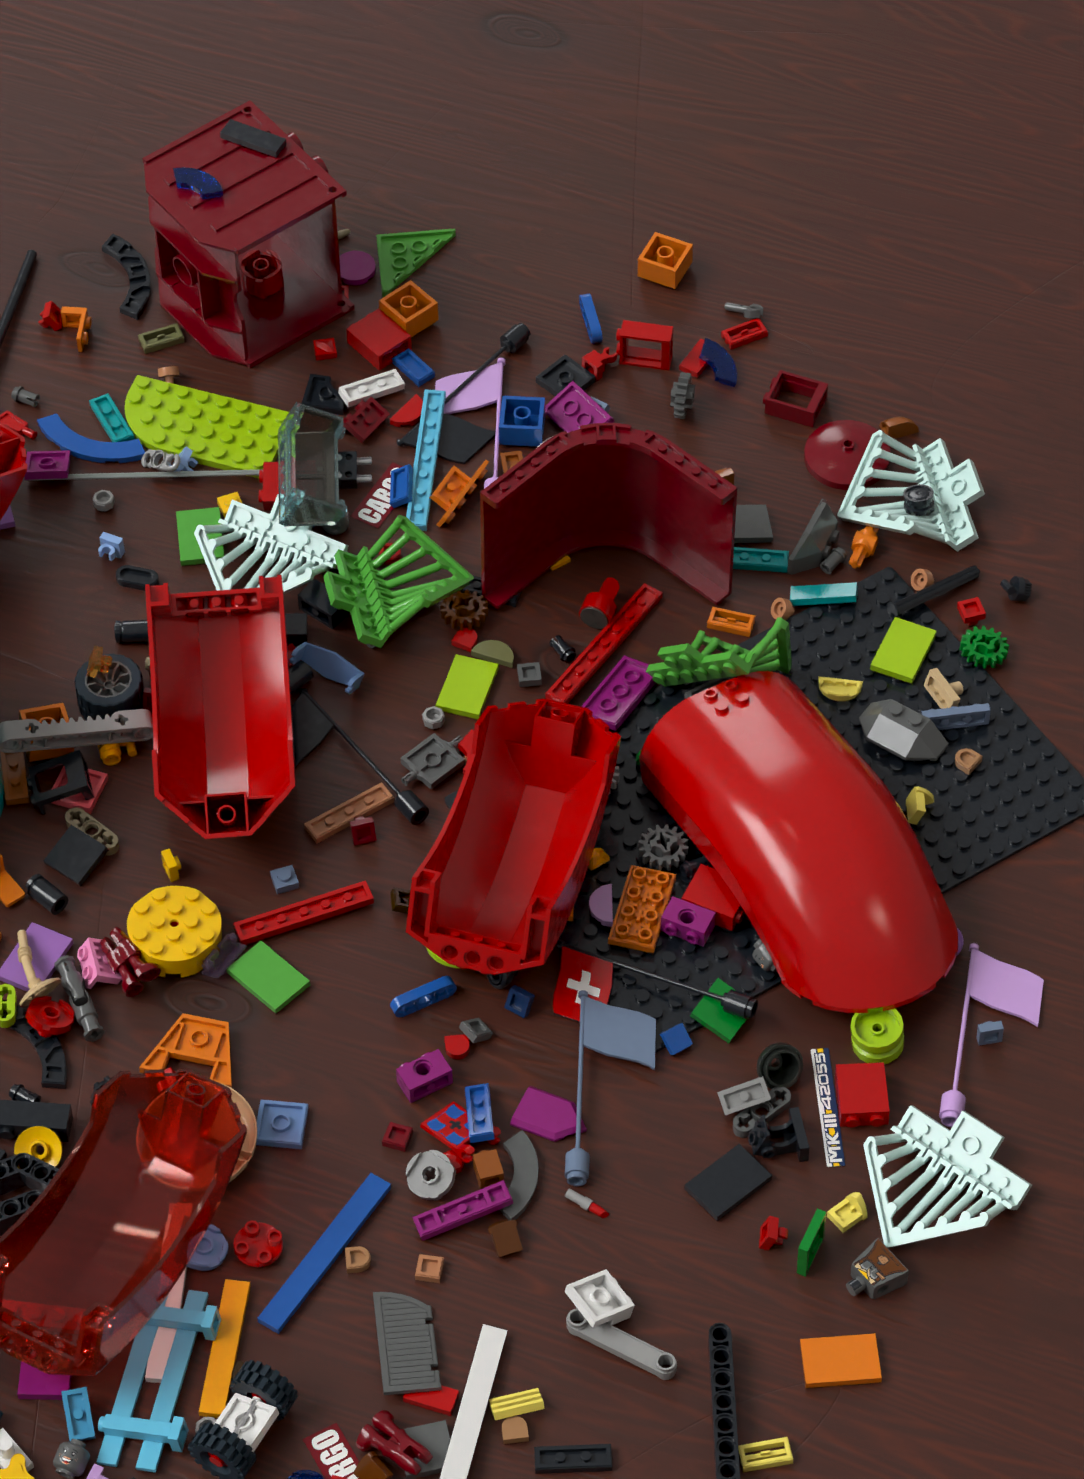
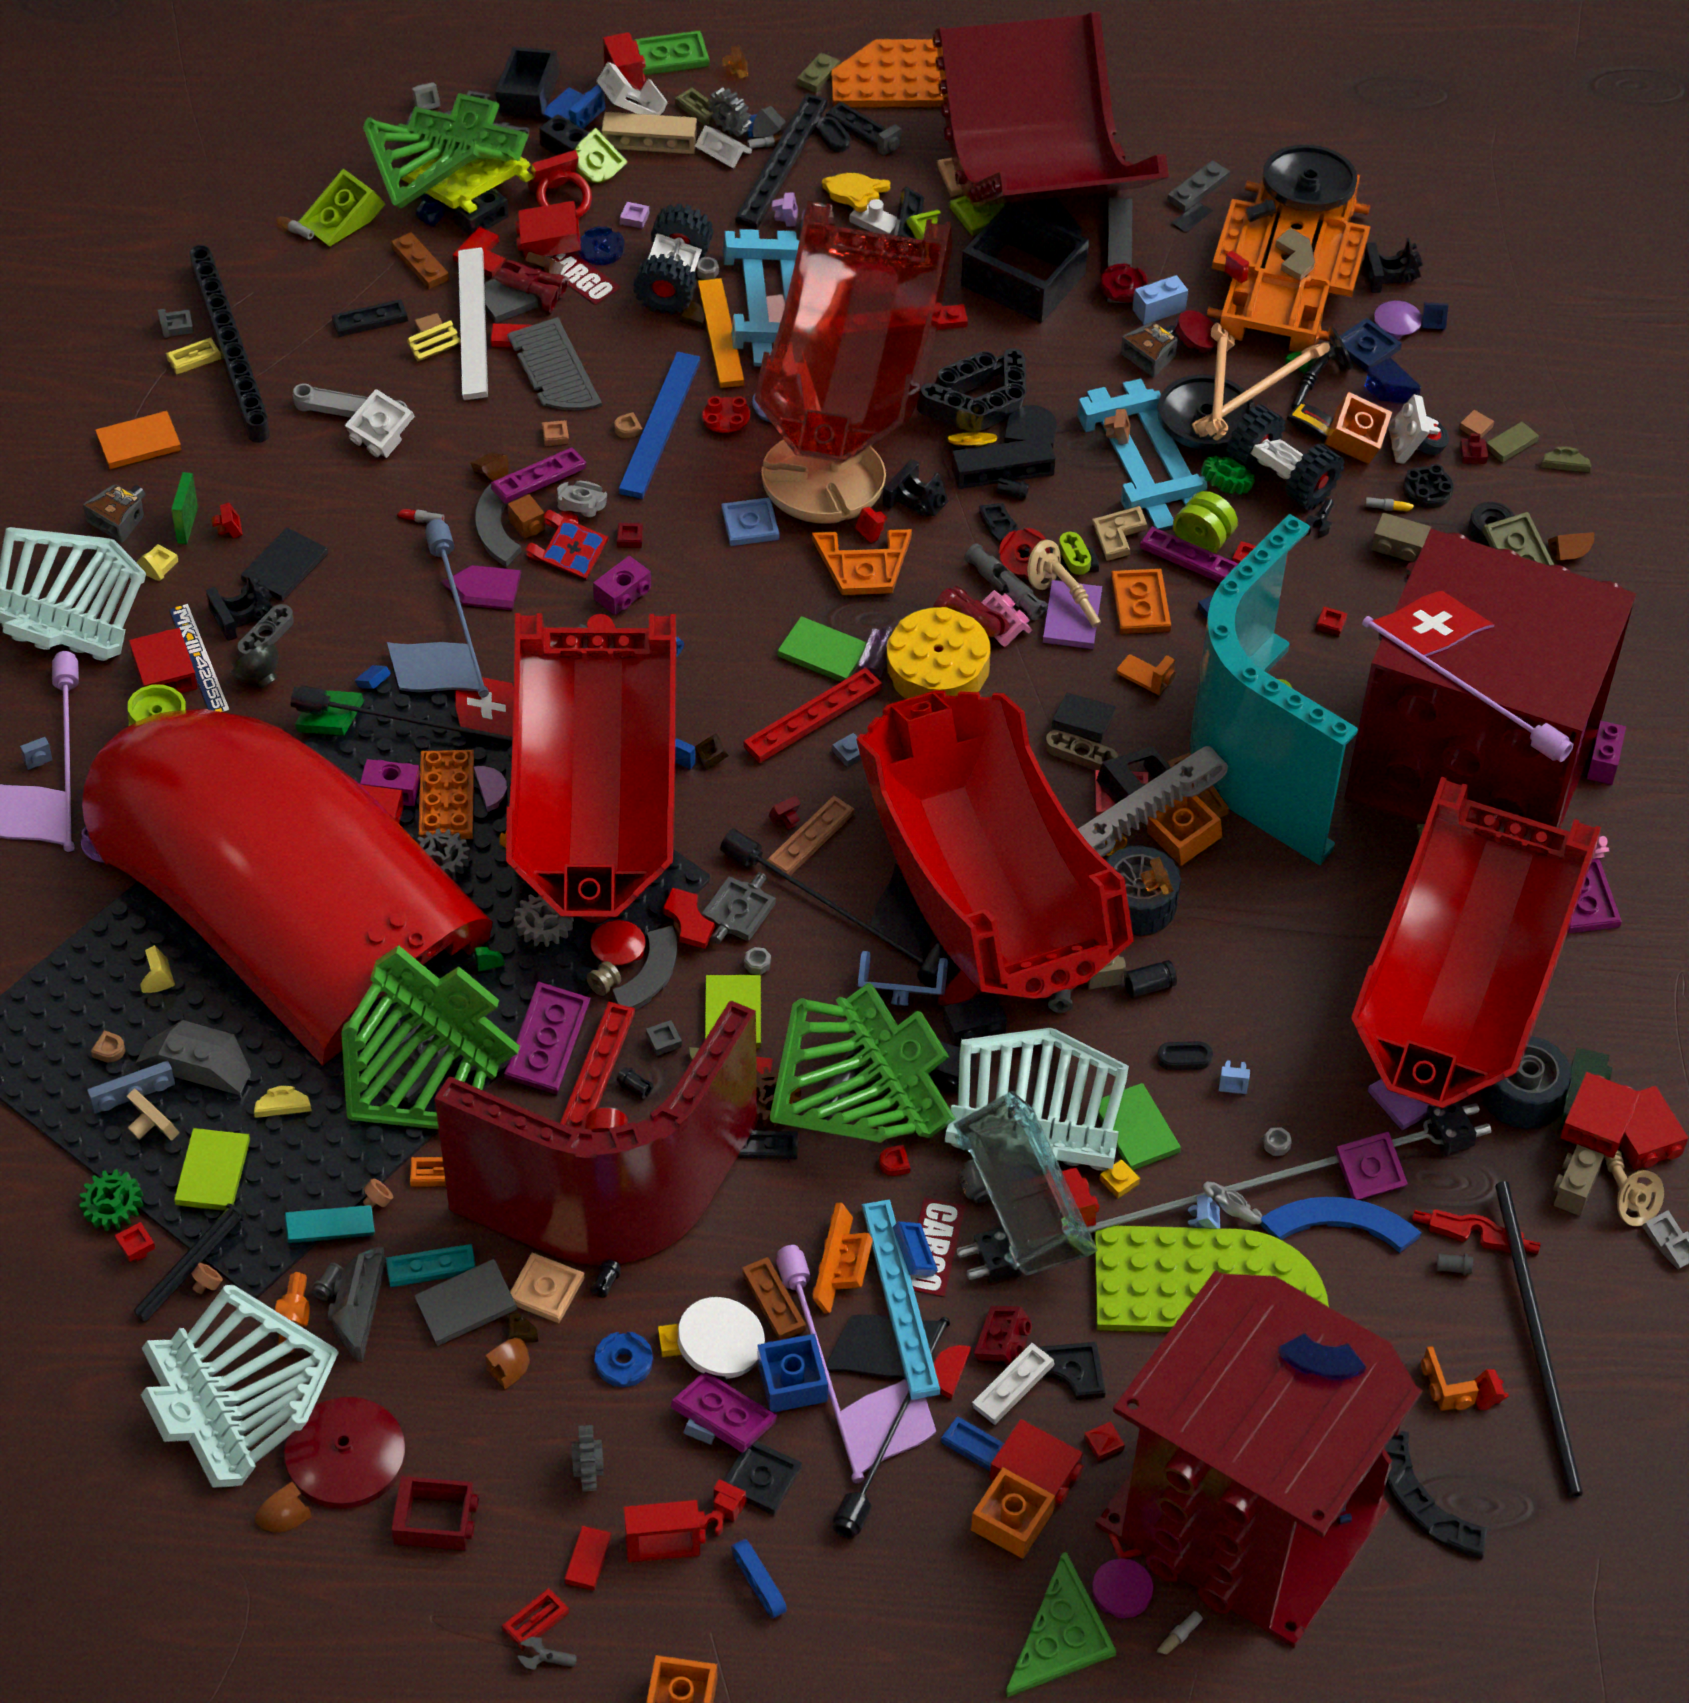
camera: 160 degrees right, 0 degrees up
(46, 894) = (1093, 670): black piece -> none
(111, 419) = (1331, 1263): teal tile -> none
(253, 138) = (1282, 1455): black tile -> none
(479, 1113) = (553, 561): blue tile -> none
(720, 361) = (554, 1549): clear blue tile -> none
(744, 1095) = (294, 623): light grey tile -> none
(918, 499) = (228, 1365): black wheel -> none
(1017, 589) = (81, 1295): black piece -> none

